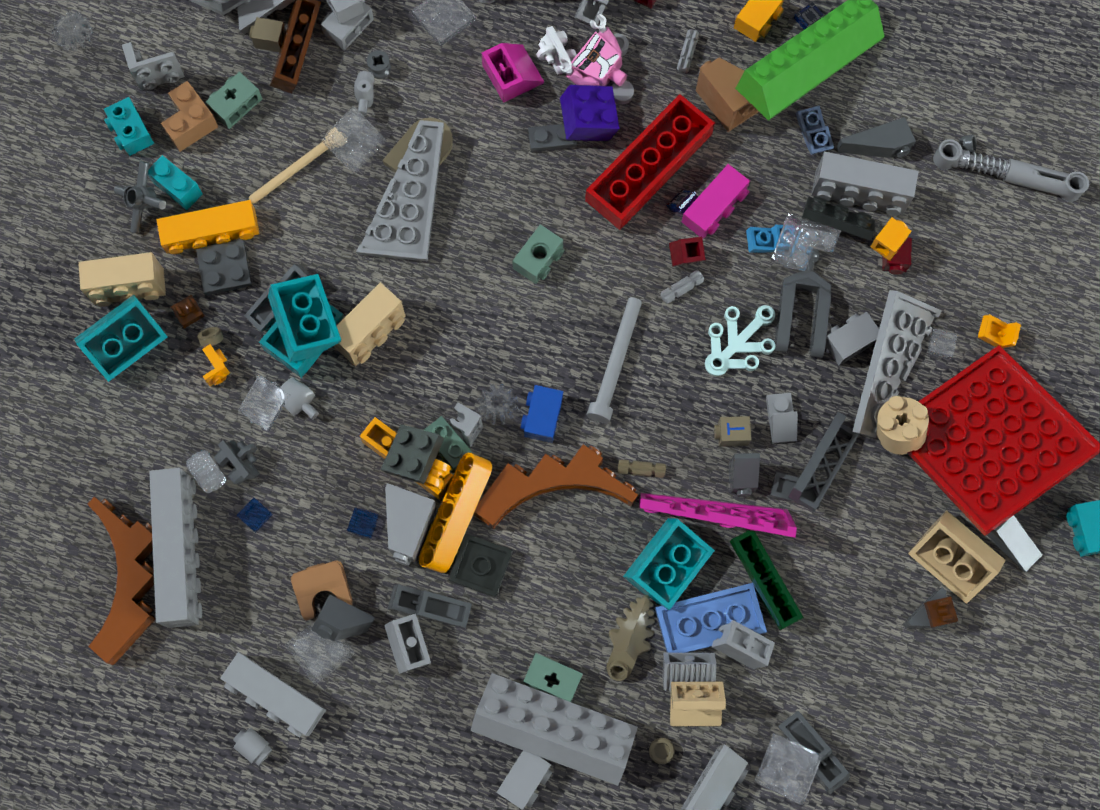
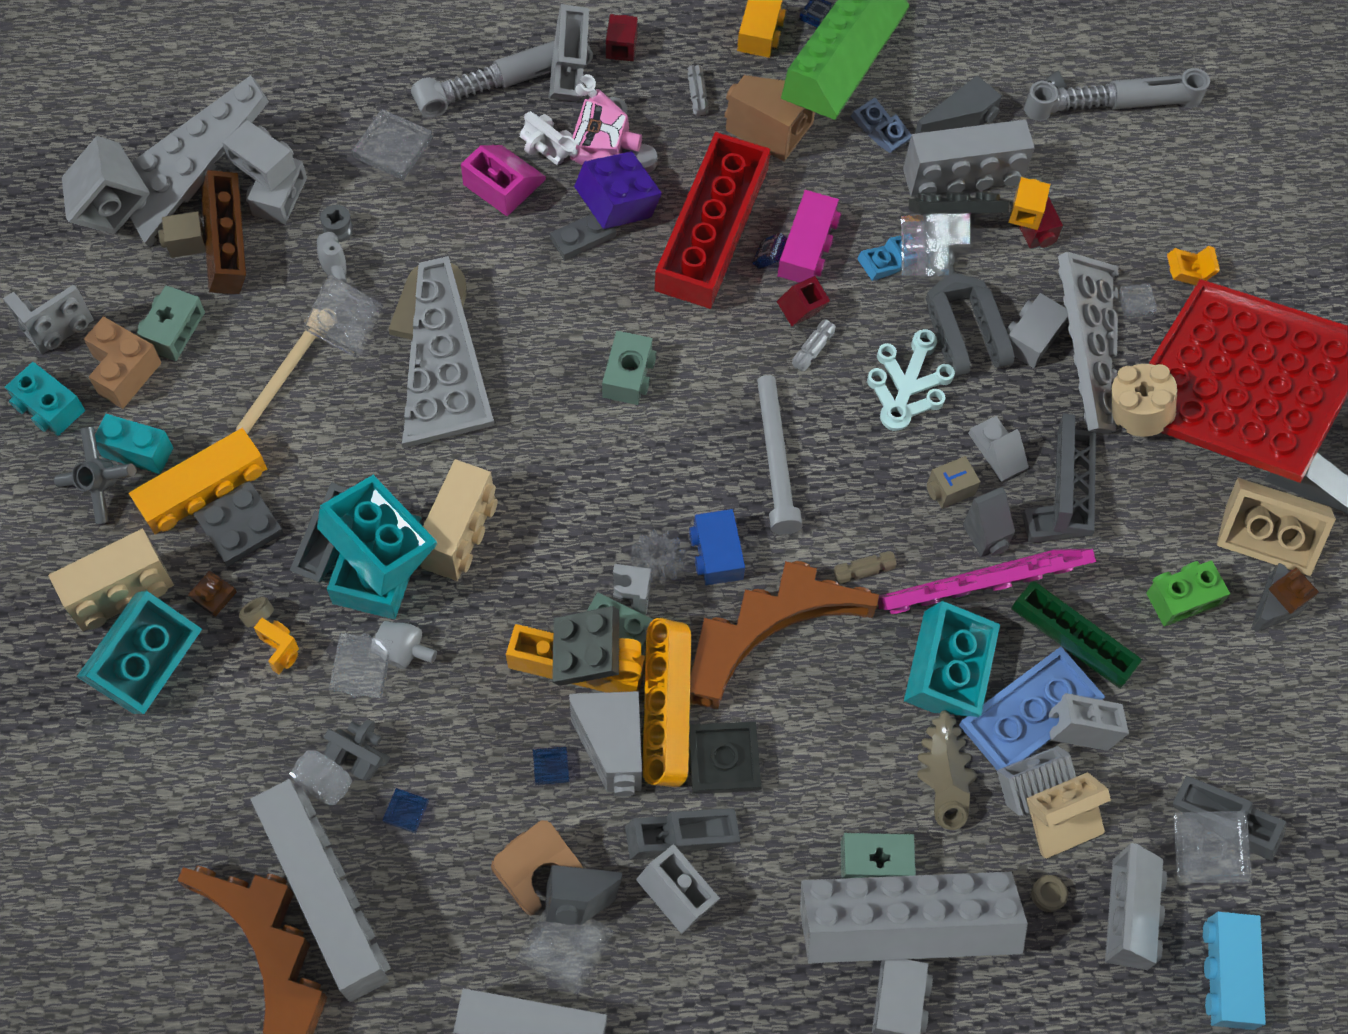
camera: 25 degrees left, 10 degrees down
(865, 580) = (1187, 592): none -> bright green brick

